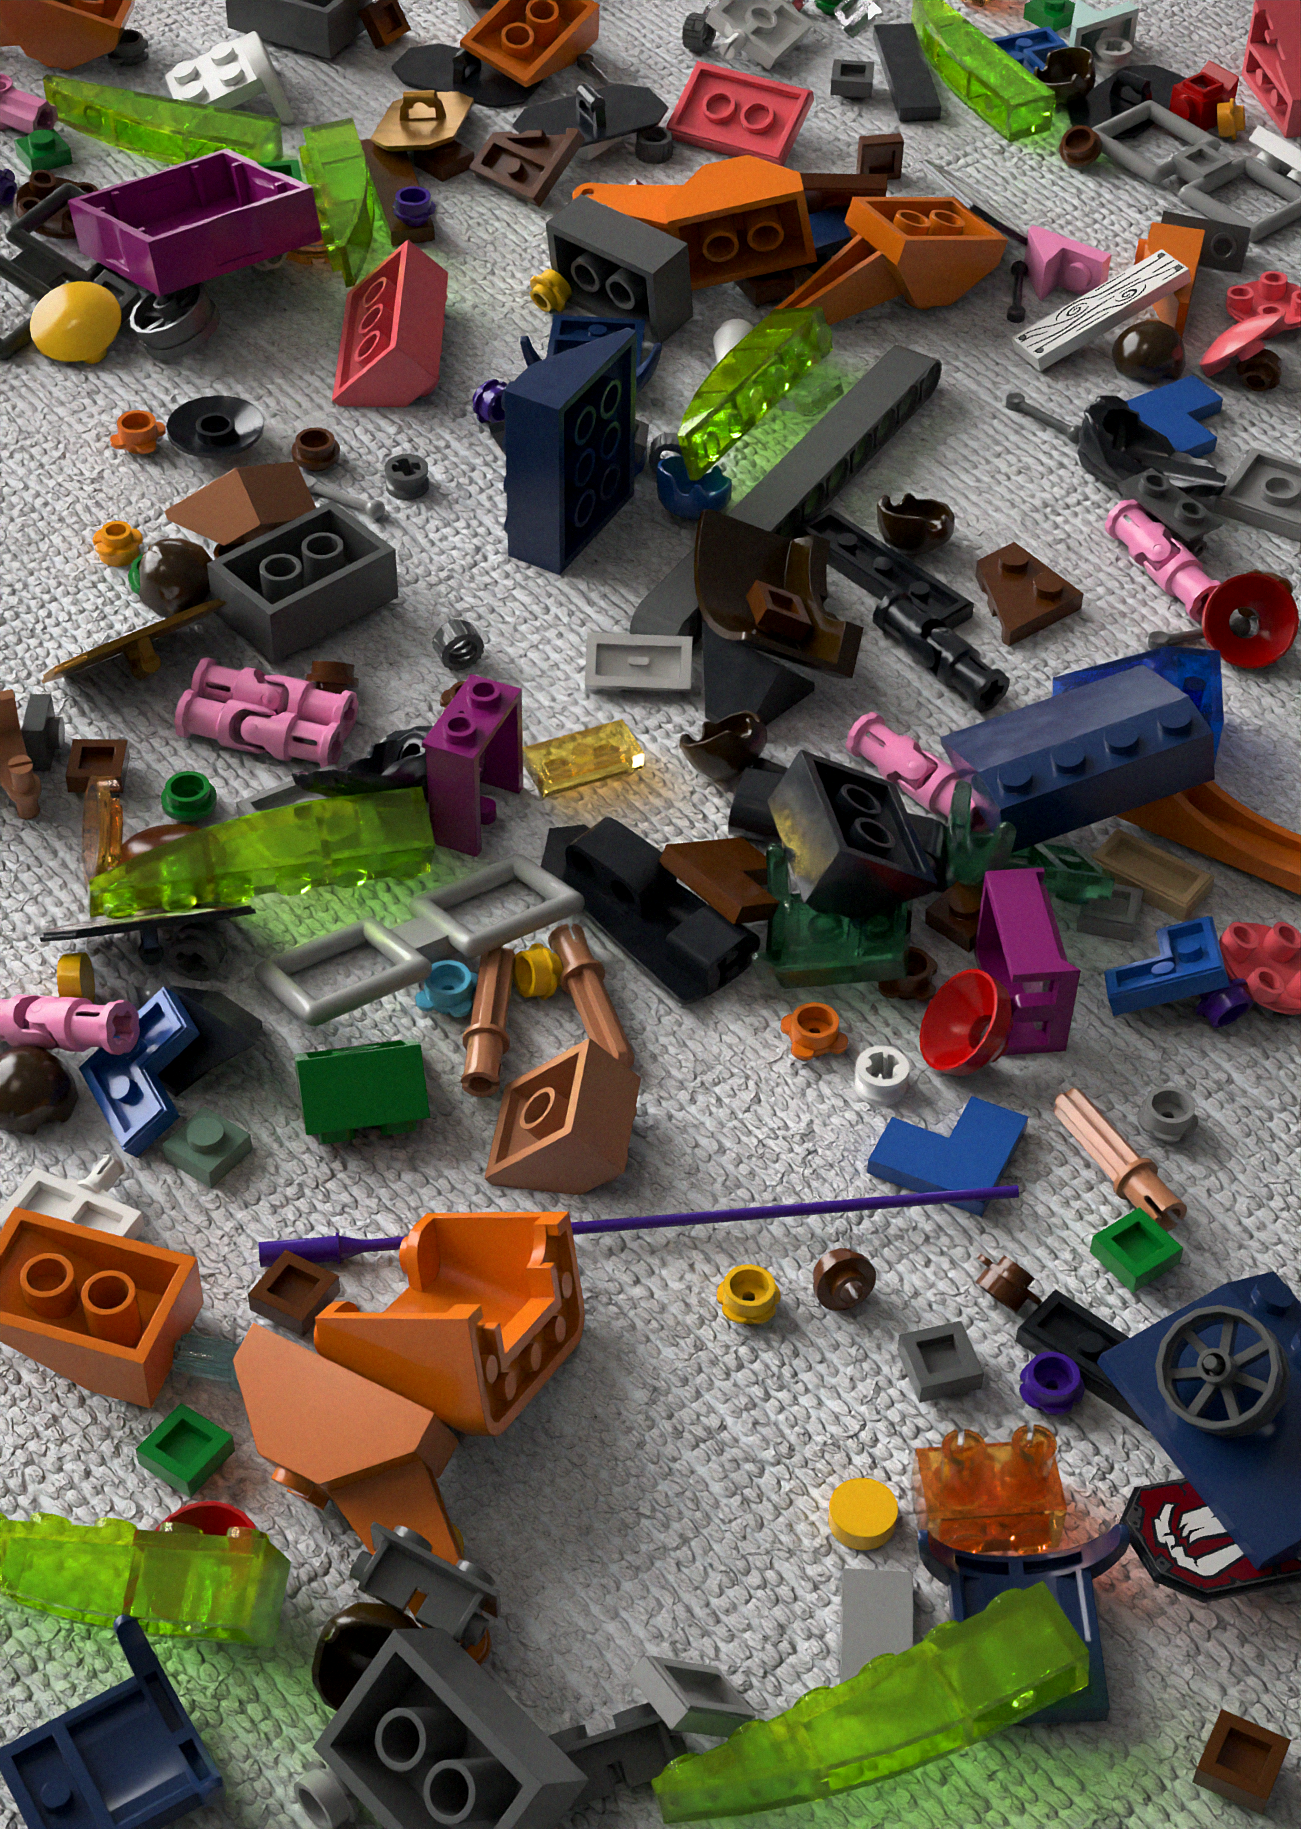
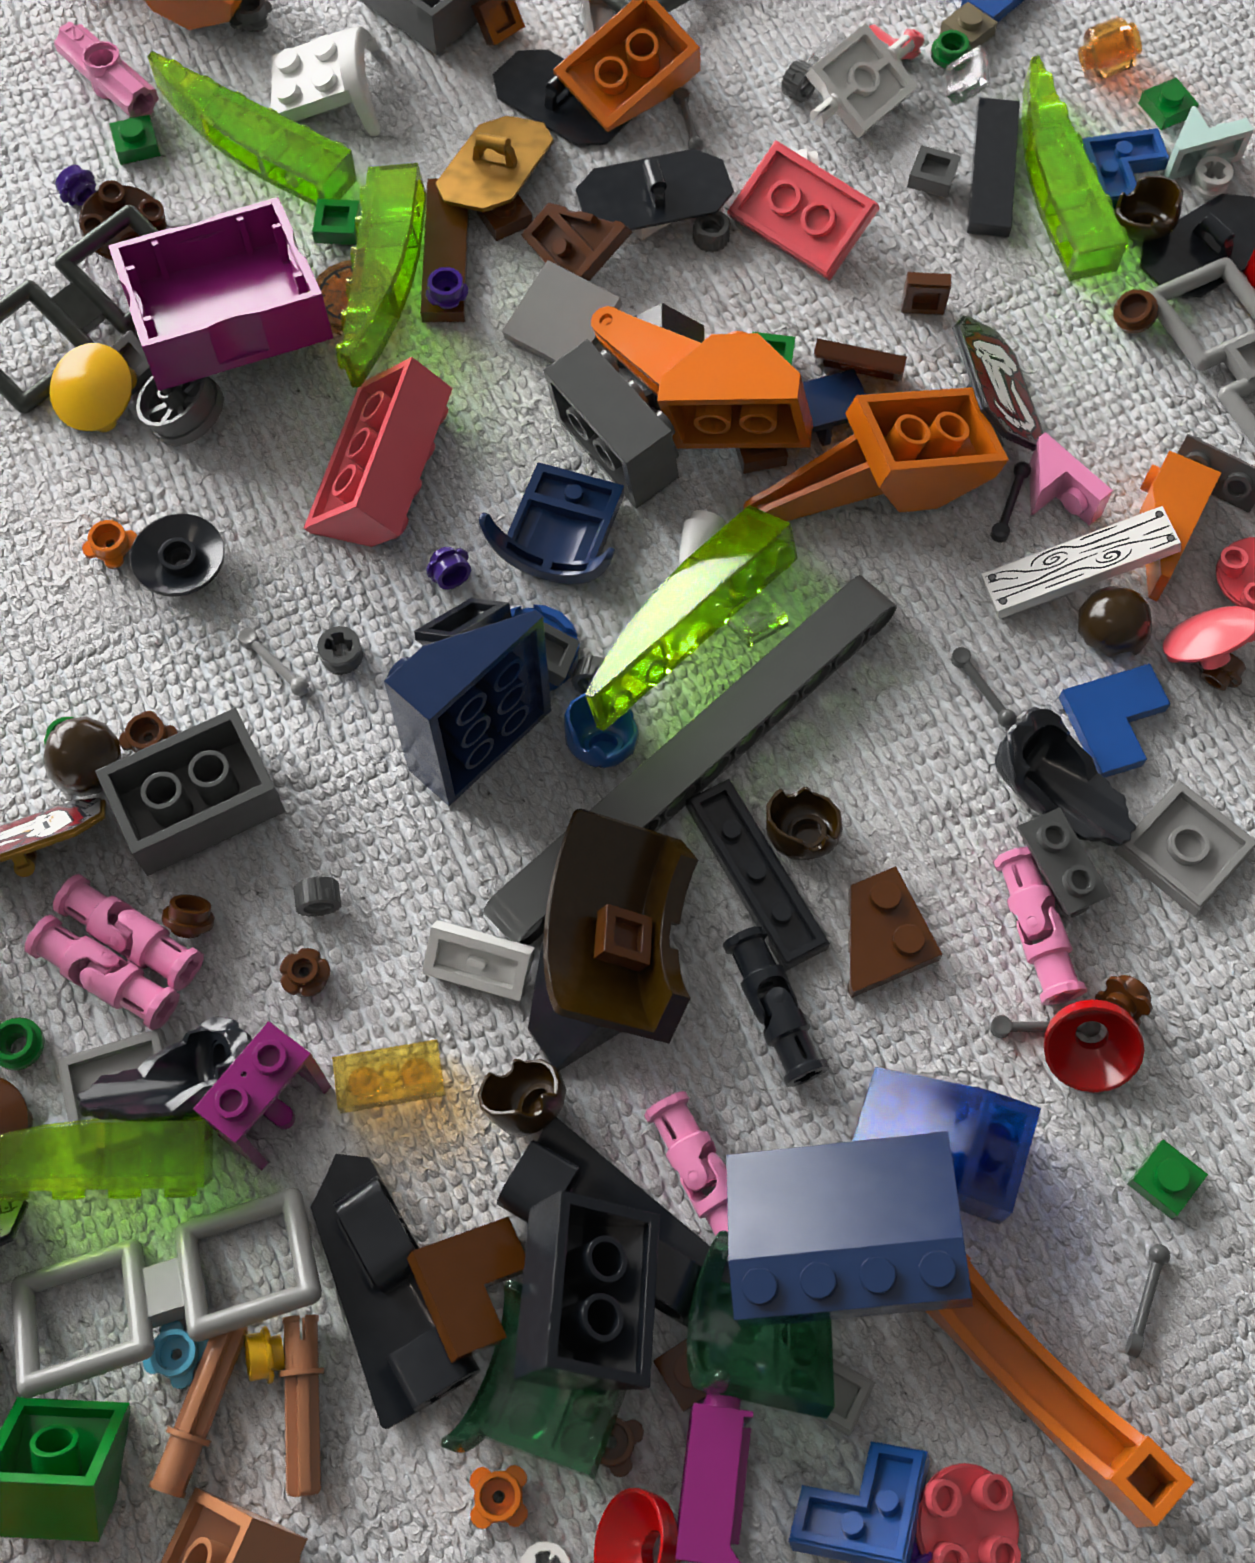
camera: 15 degrees right, 20 degrees up
(117, 543) = (55, 696): light orange plate -> none
(245, 503) = (165, 689): nougat slope -> none
(315, 449) = (265, 599): reddish brown plate -> none
(521, 212) = (557, 313): none -> light grey tile
(550, 290) = (547, 422): yellow plate -> none
(1166, 880) = (894, 1360): tan tile -> none

